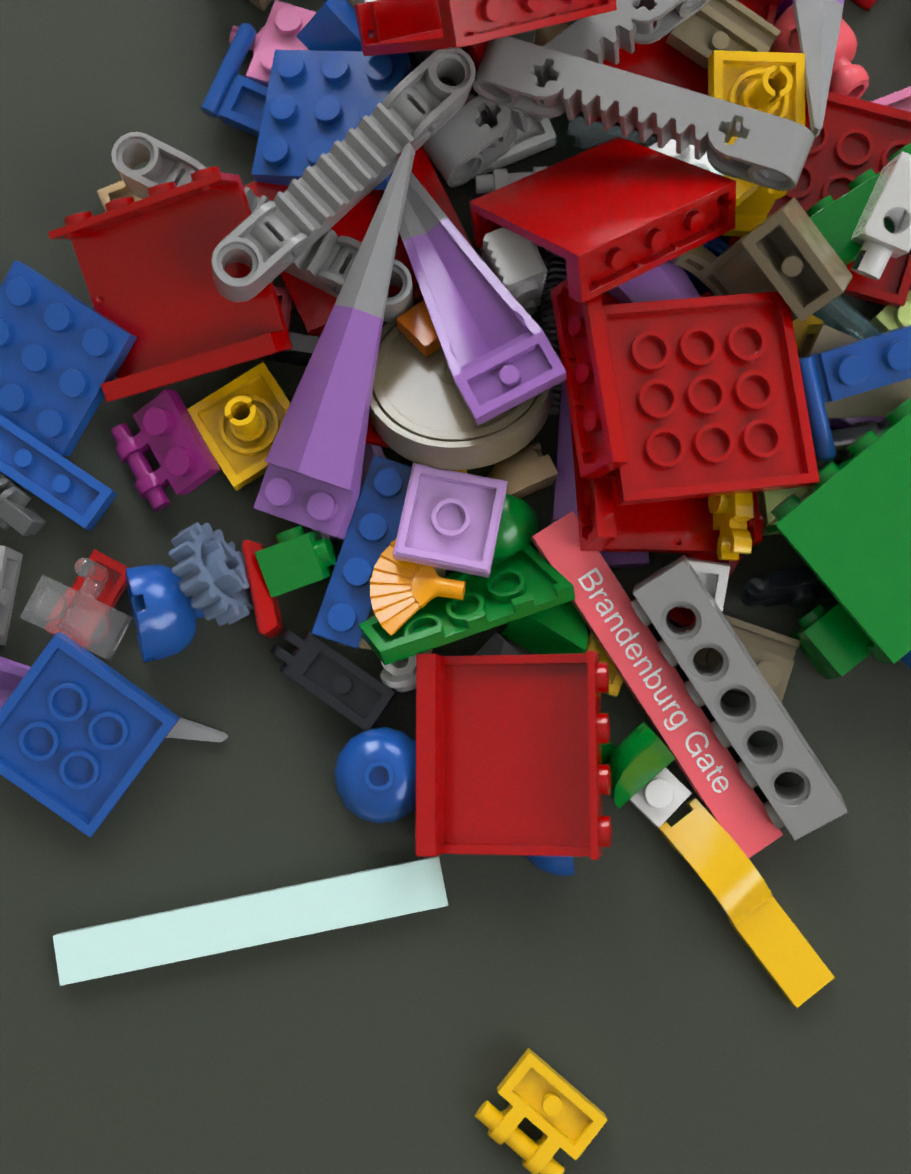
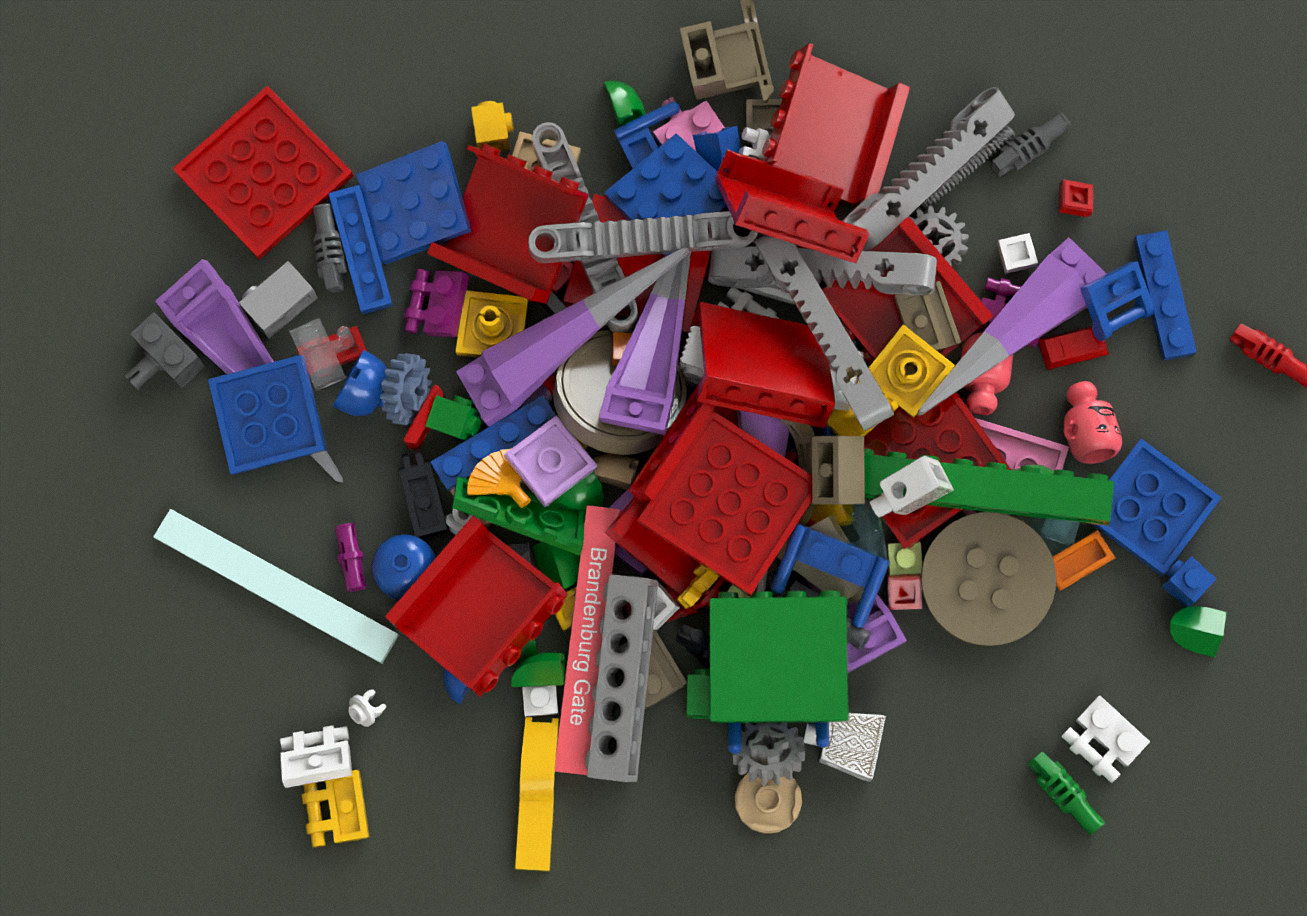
camera: 45 degrees right, 5 degrees down
(52, 199) = (492, 125): none -> yellow brick
(184, 72) = (623, 102): none -> green brick
(310, 815) = (350, 557): none -> magenta pin
(475, 980) = (362, 711): none -> white plate
(478, 1091) = (317, 762): none -> white plate

